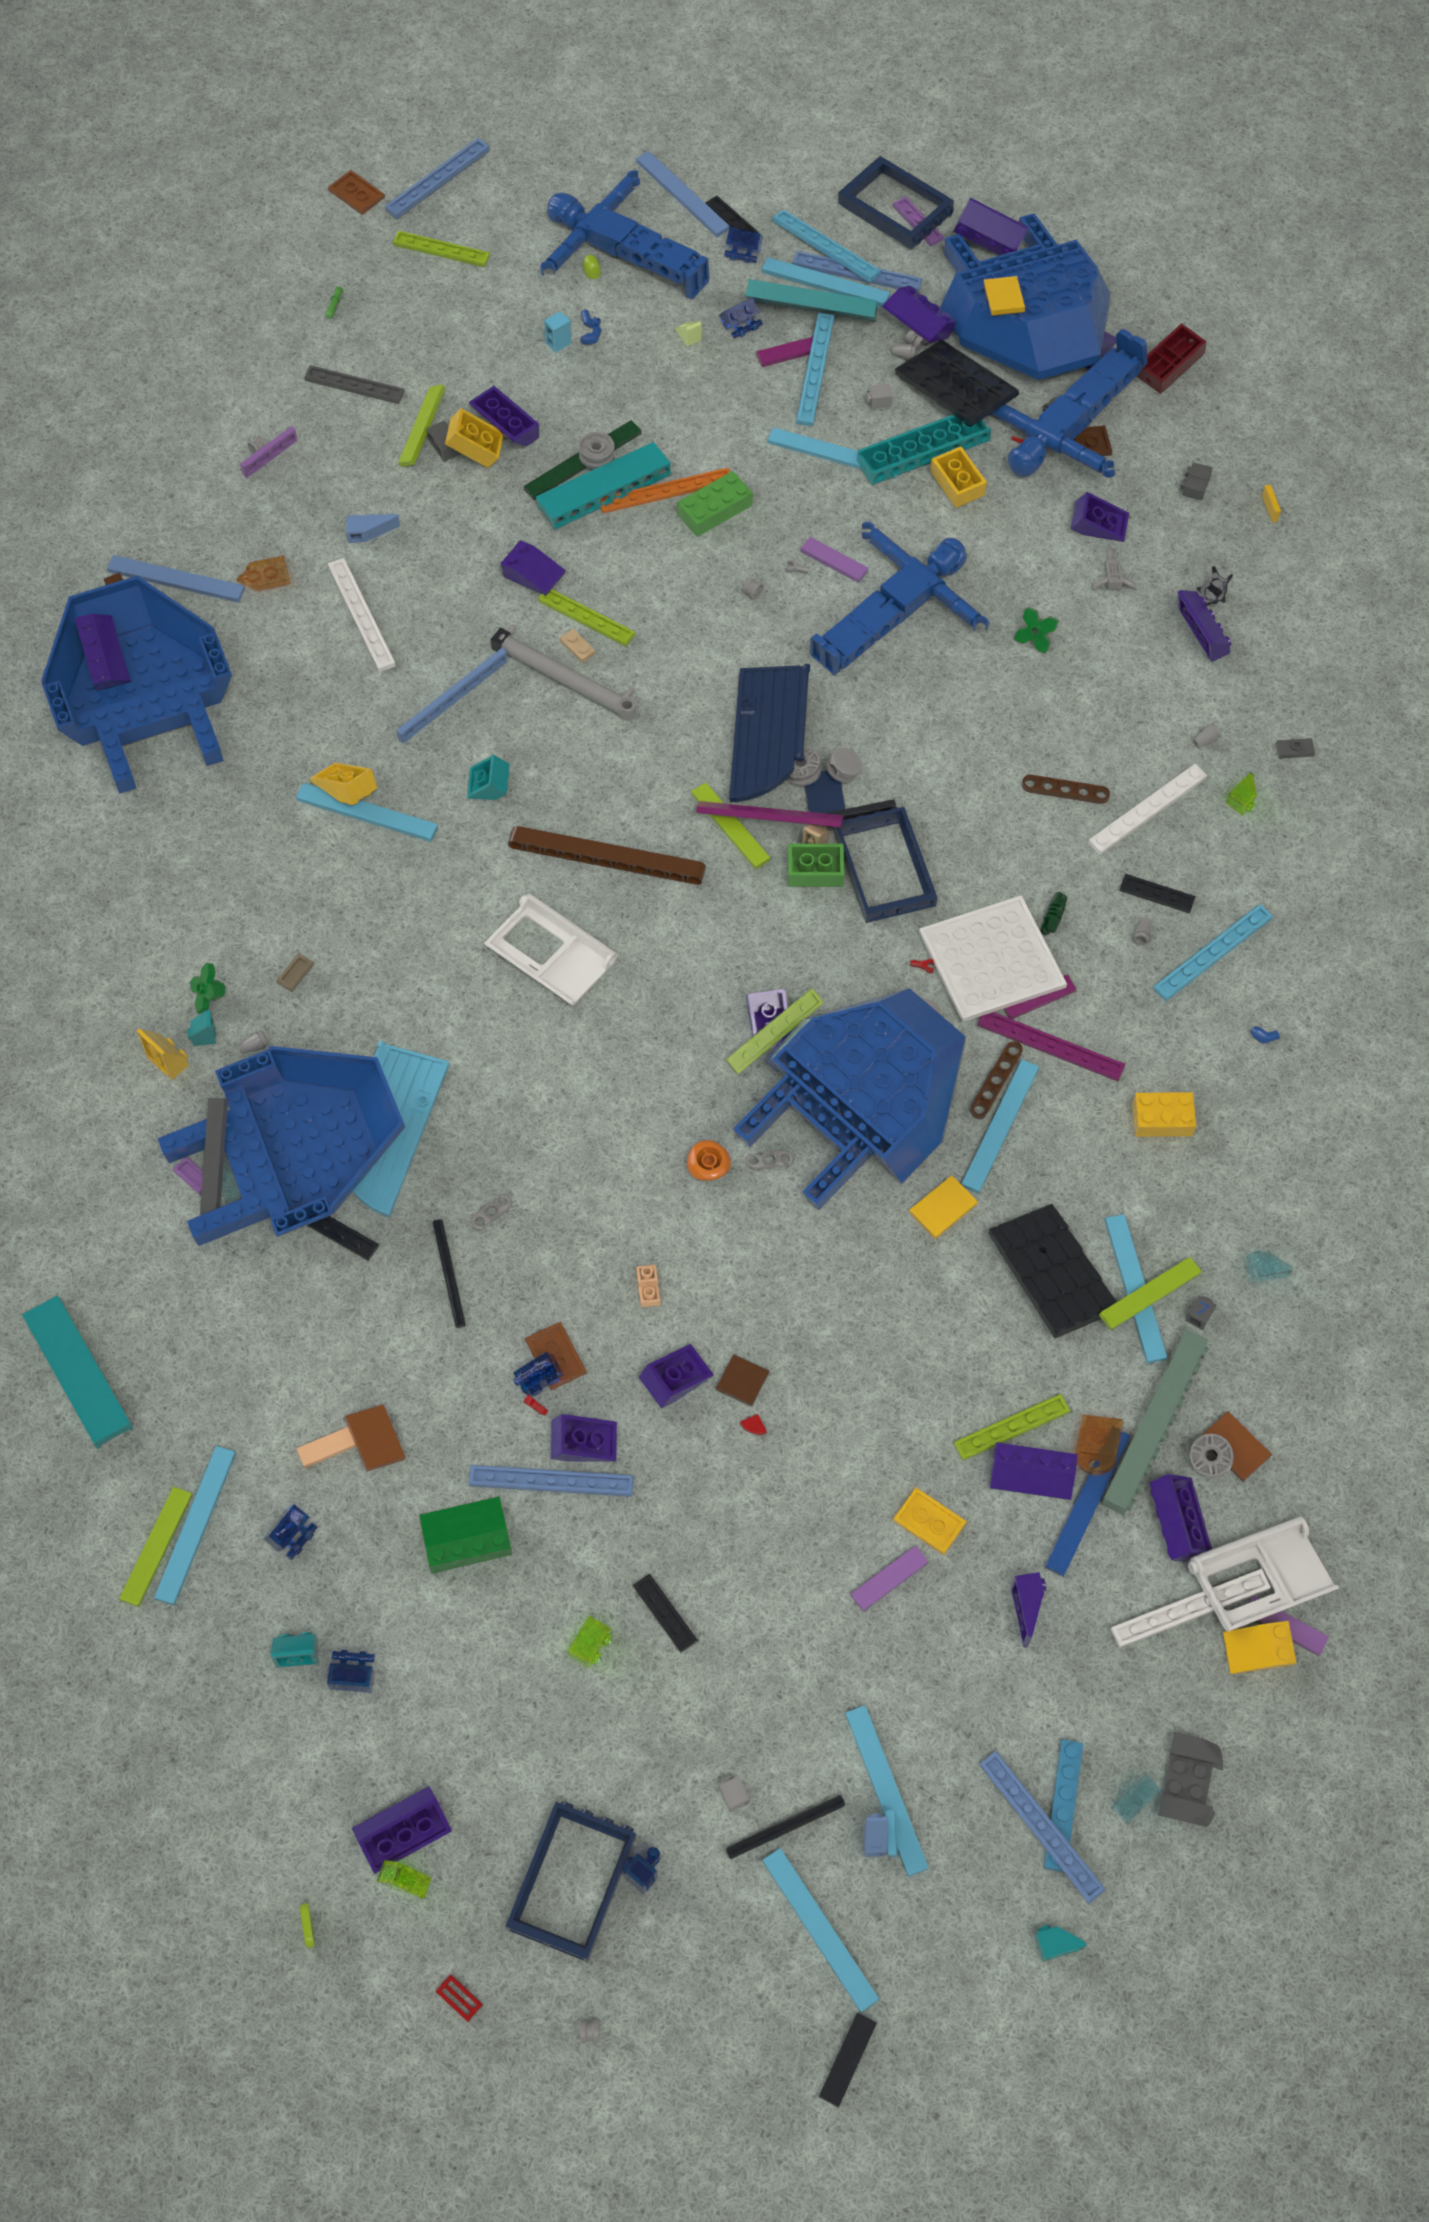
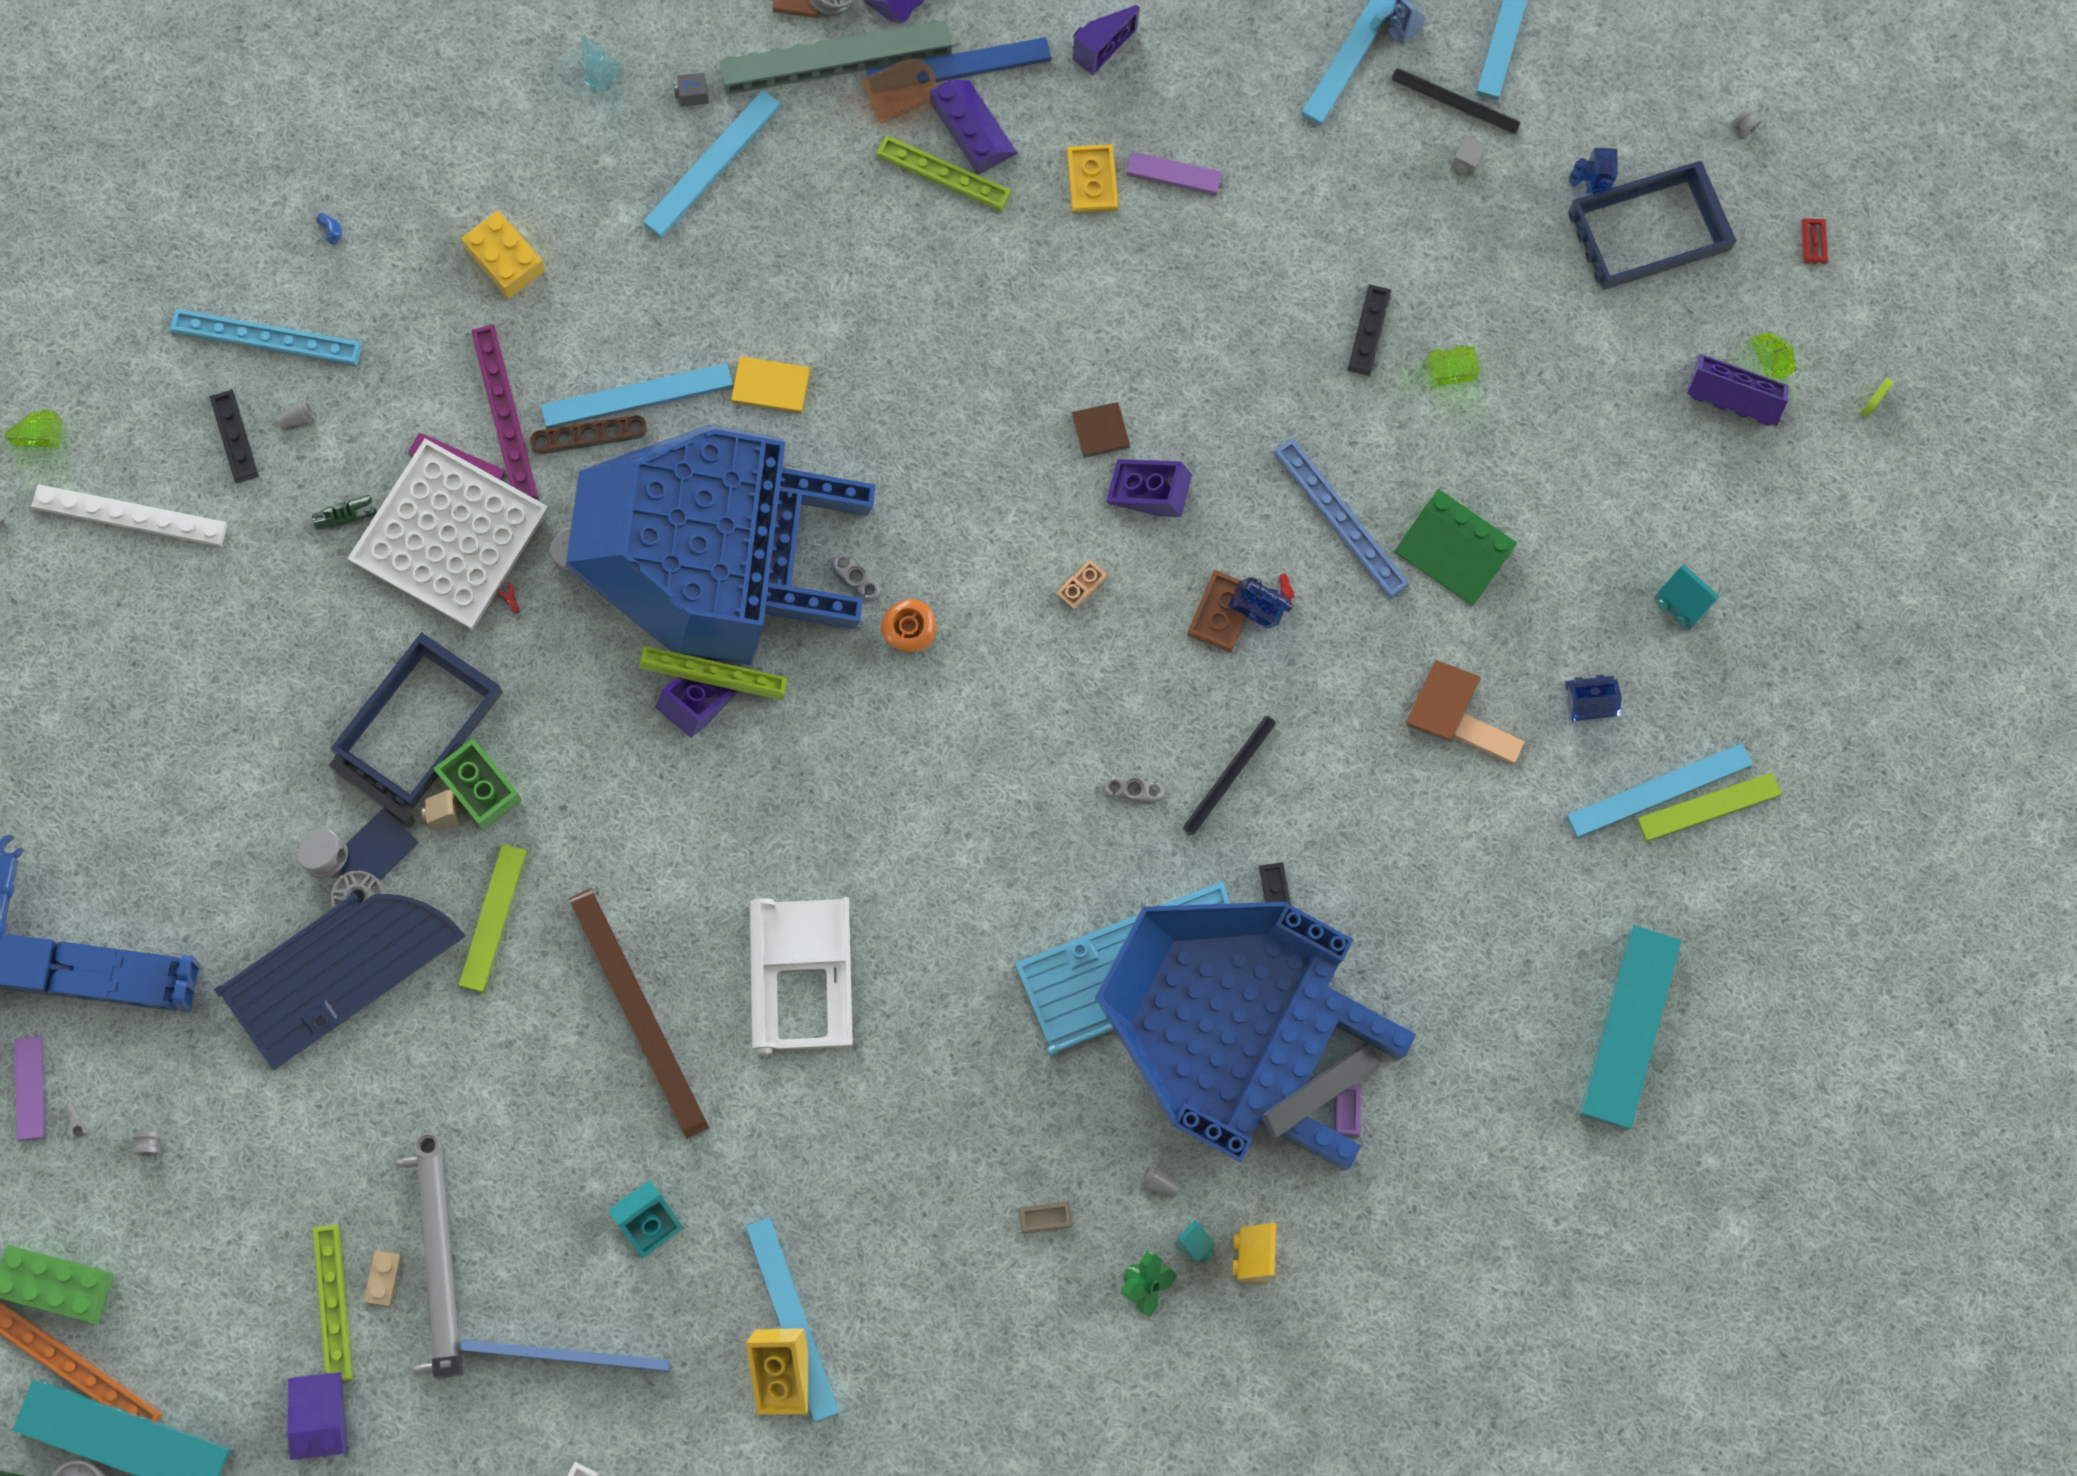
camera: 135 degrees left, 10 degrees up
(351, 1677) = (1661, 533): clear blue brick -> none
(583, 1439) = (1282, 518): dark purple slope -> none
(753, 1425) = (1135, 387): red tile -> none
(770, 814) = (453, 875): magenta tile -> none
(1052, 1270) = (762, 224): black piece -> none
(1074, 786) = (160, 605): reddish brown beam -> none
(1150, 1293) = (710, 142): lime tile -> none

